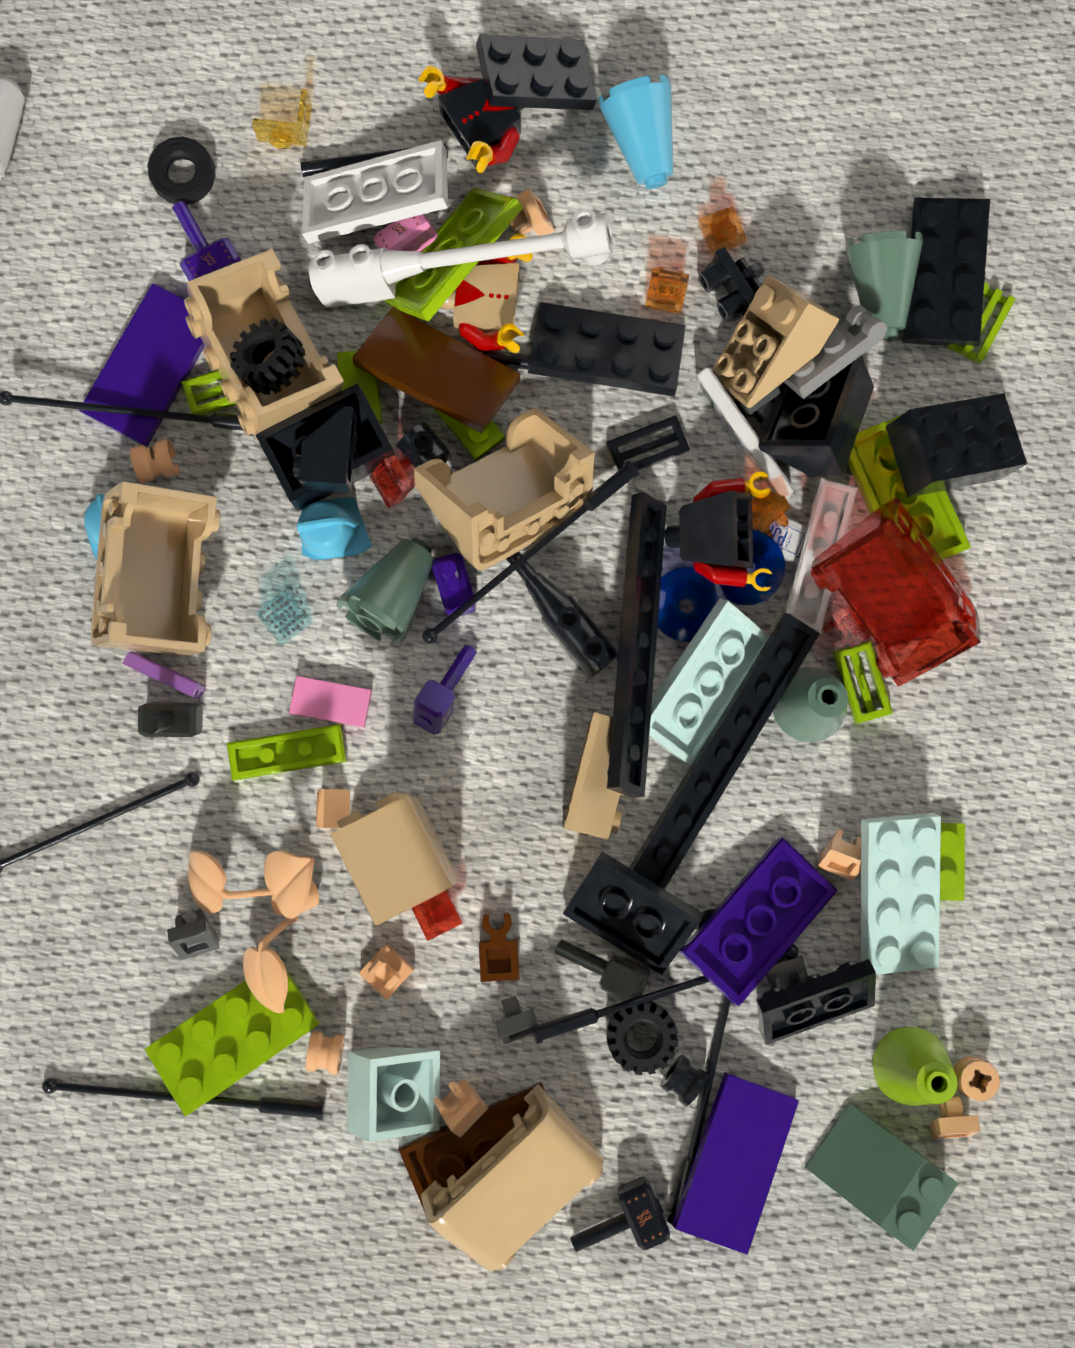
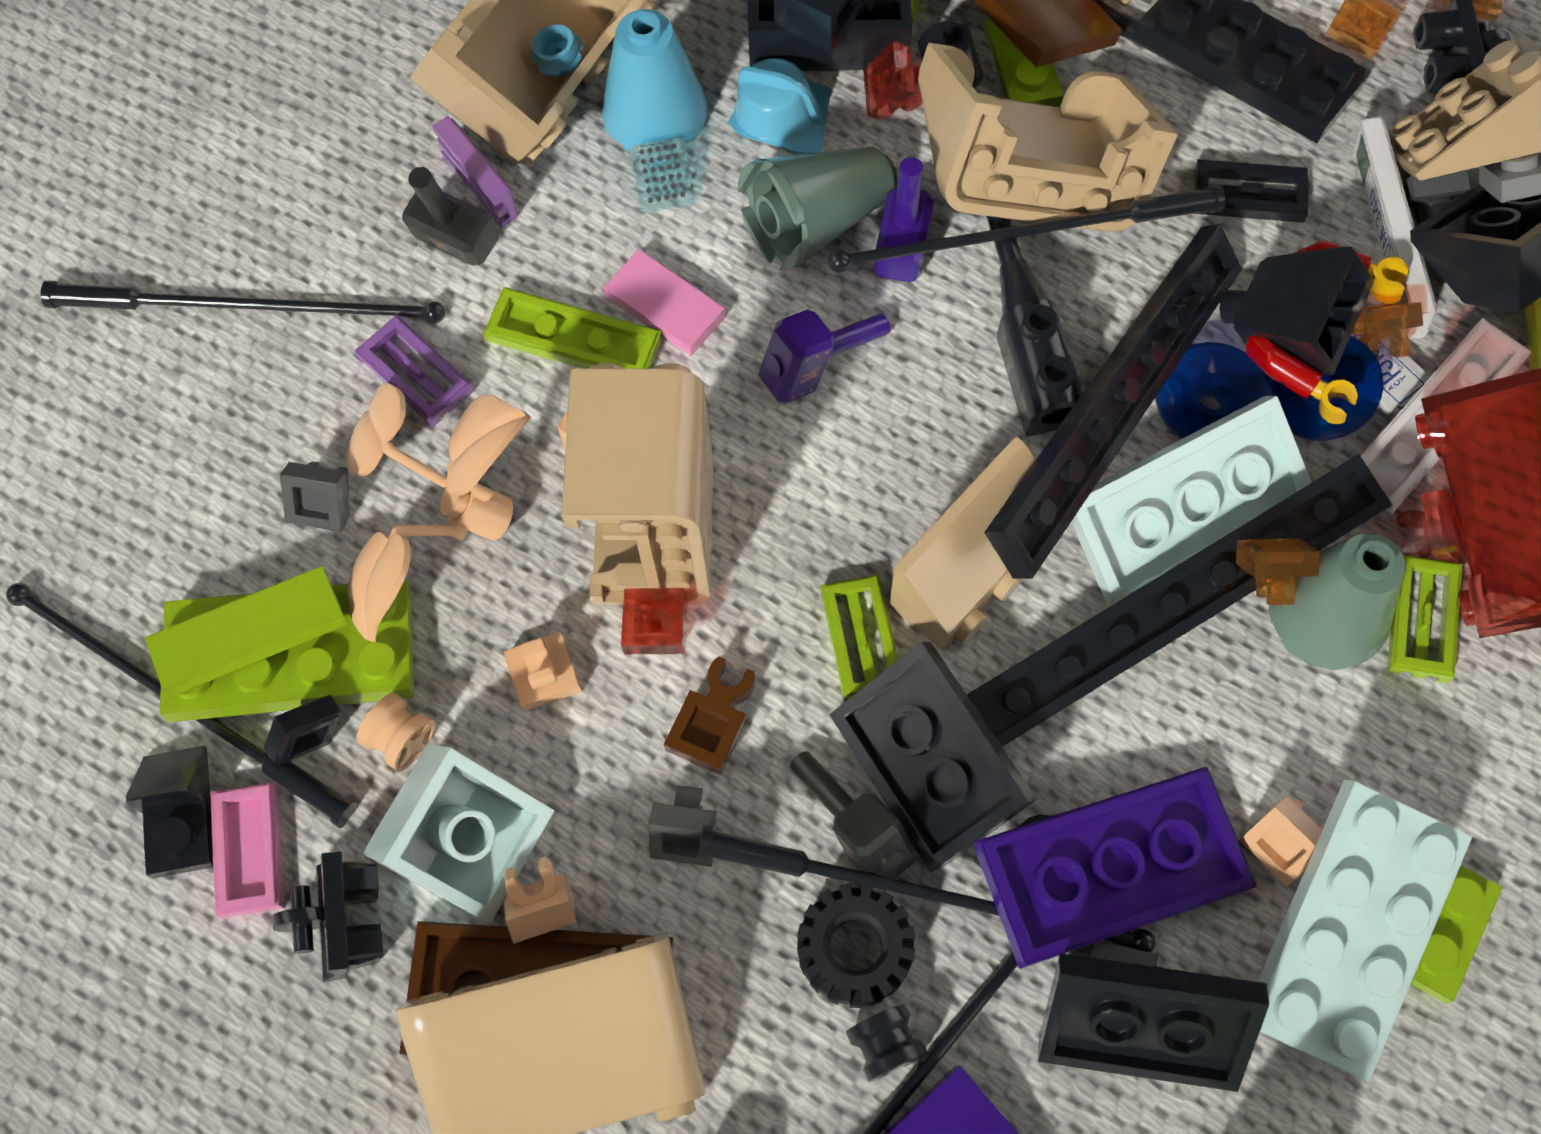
camera: 35 degrees right, 15 degrees down
(162, 566) = (556, 50): none -> medium azure plate
(207, 1046) = (244, 631): none -> lime tile
(224, 1158) = (176, 811): none -> black slope
(234, 833) = (443, 401): none -> medium lavender tile
(249, 567) = (651, 84): none -> medium azure cone
(273, 1082) = (302, 730): none -> black tile
(278, 1159) = (246, 850): none -> bright pink tile
(364, 1185) = (340, 945): none -> black hips
(536, 830) = (850, 589): none -> lime tile
(772, 708) = (1276, 565): none -> clear orange tile

